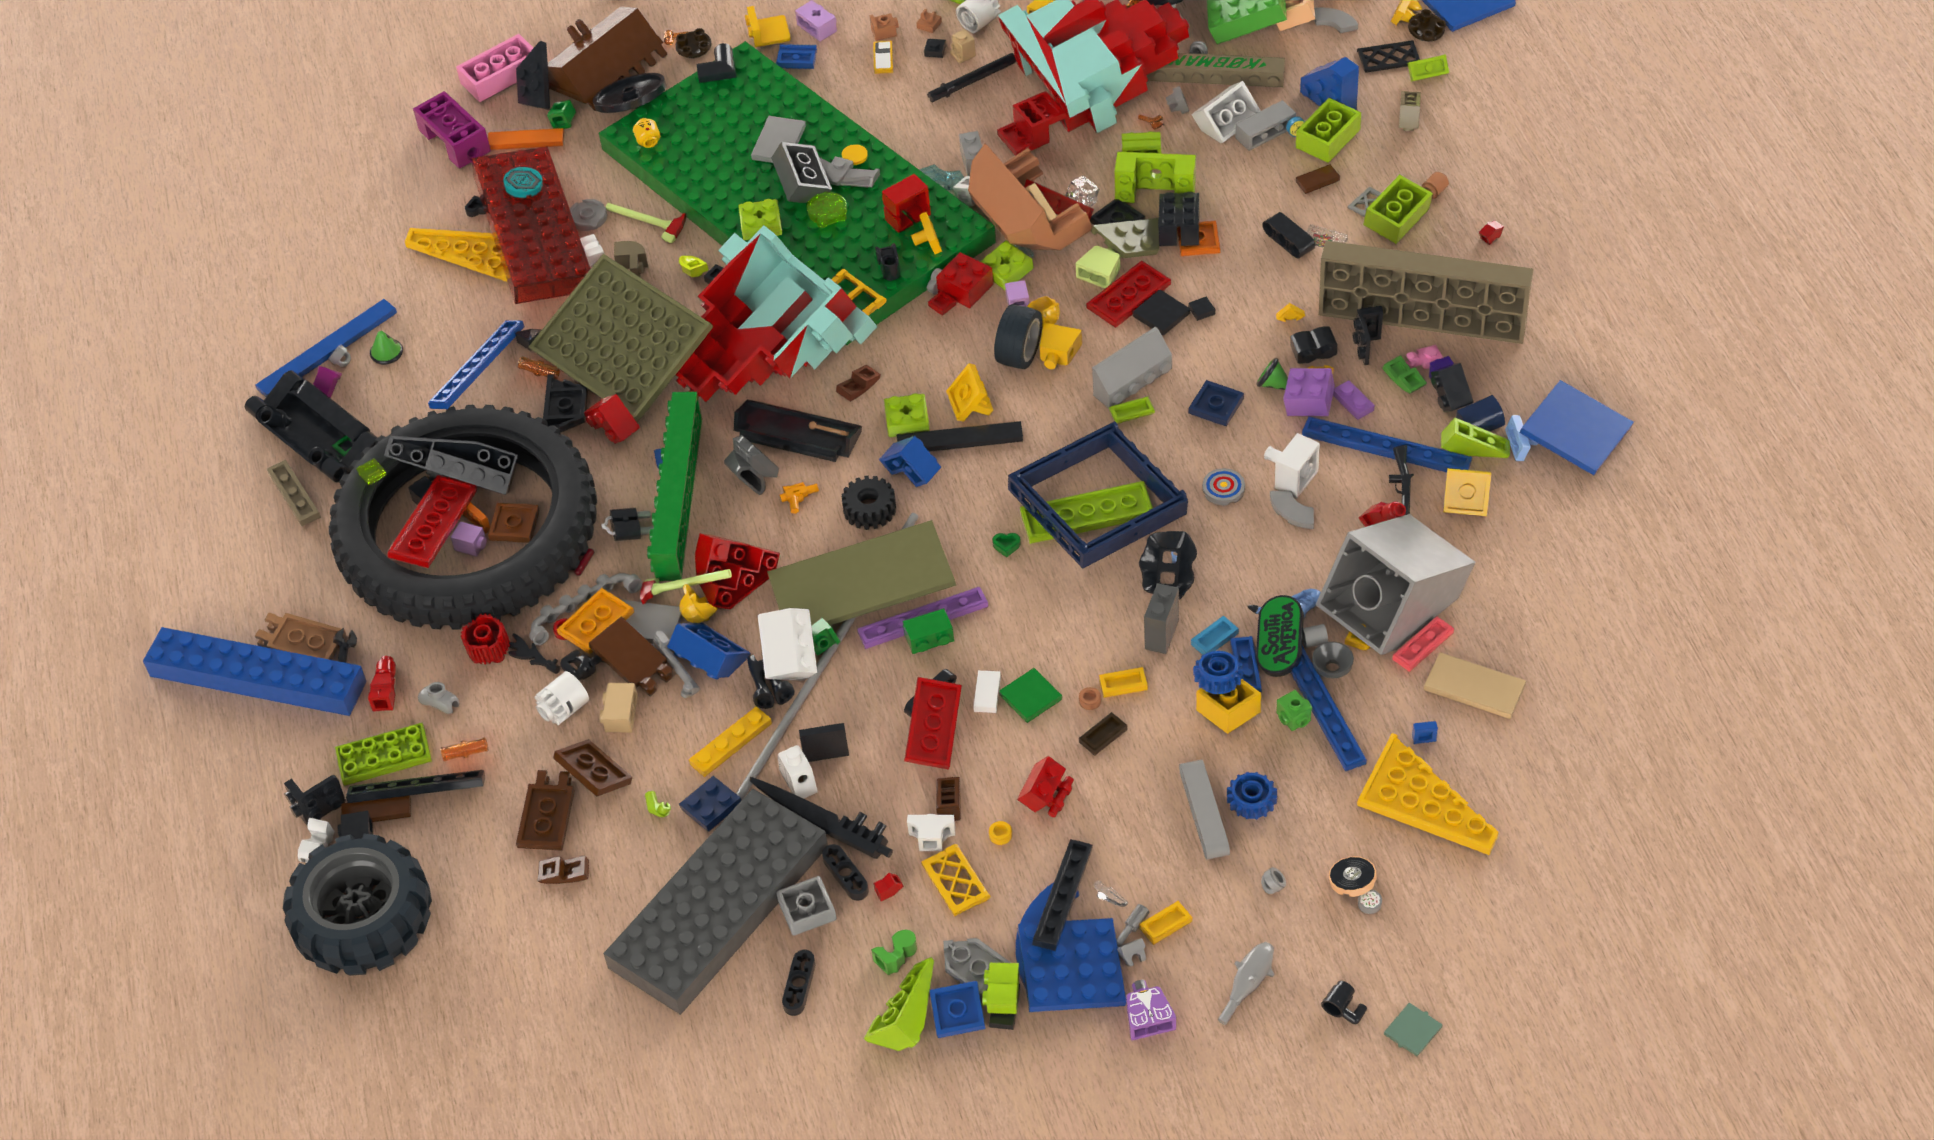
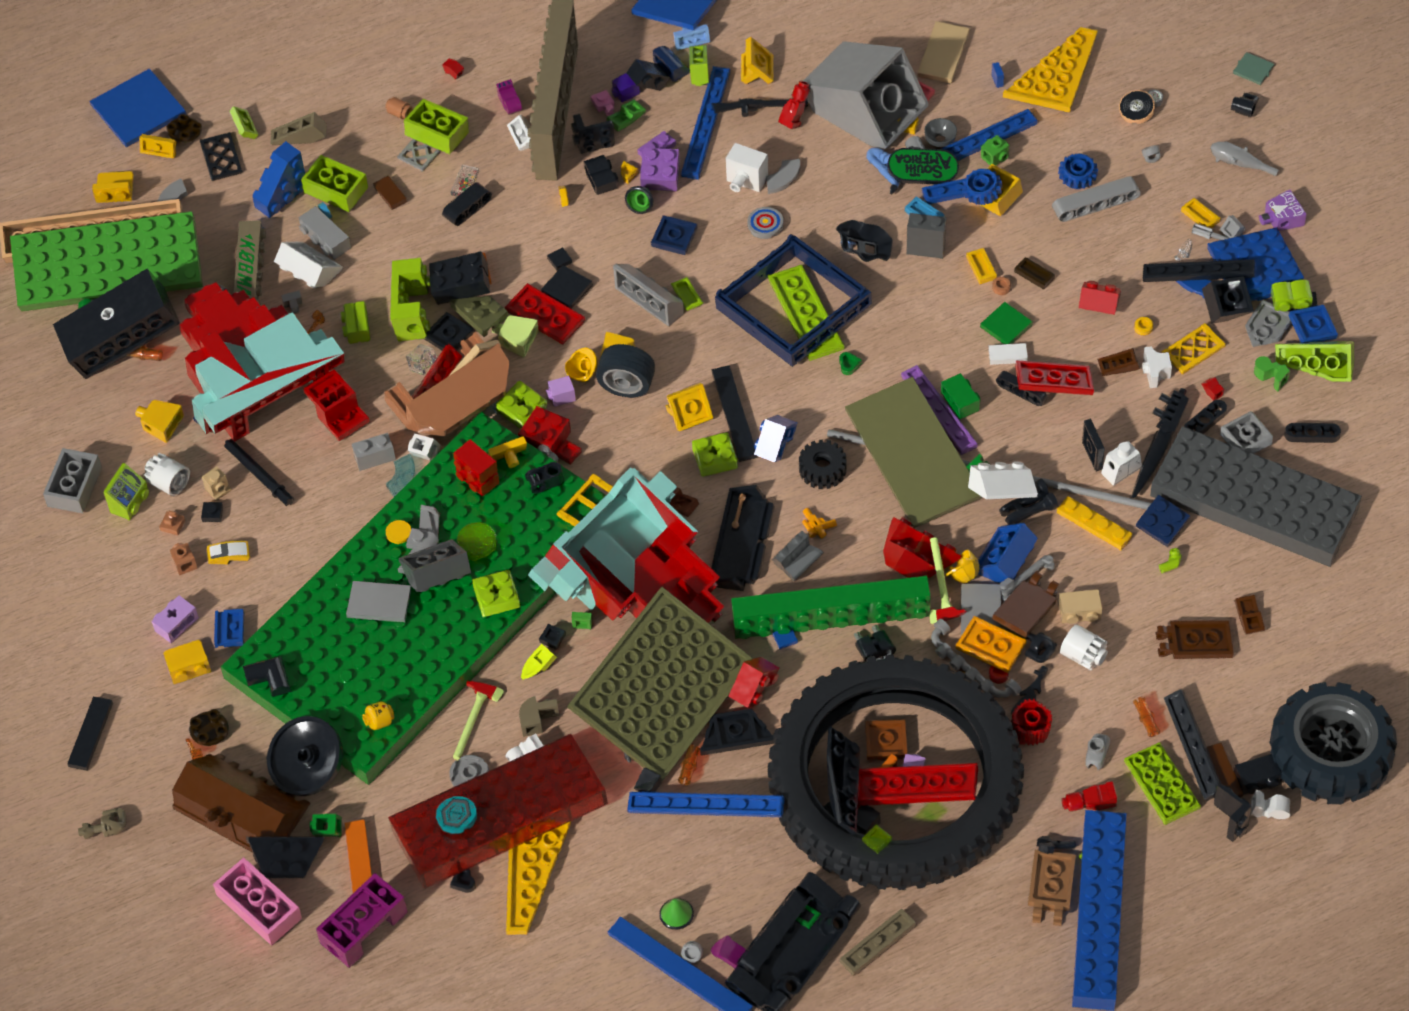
camera: 100 degrees left, 5 degrees up
(592, 767) = (1149, 609): reddish brown plate -> none
(1007, 912) = (1227, 299): none -> black slope

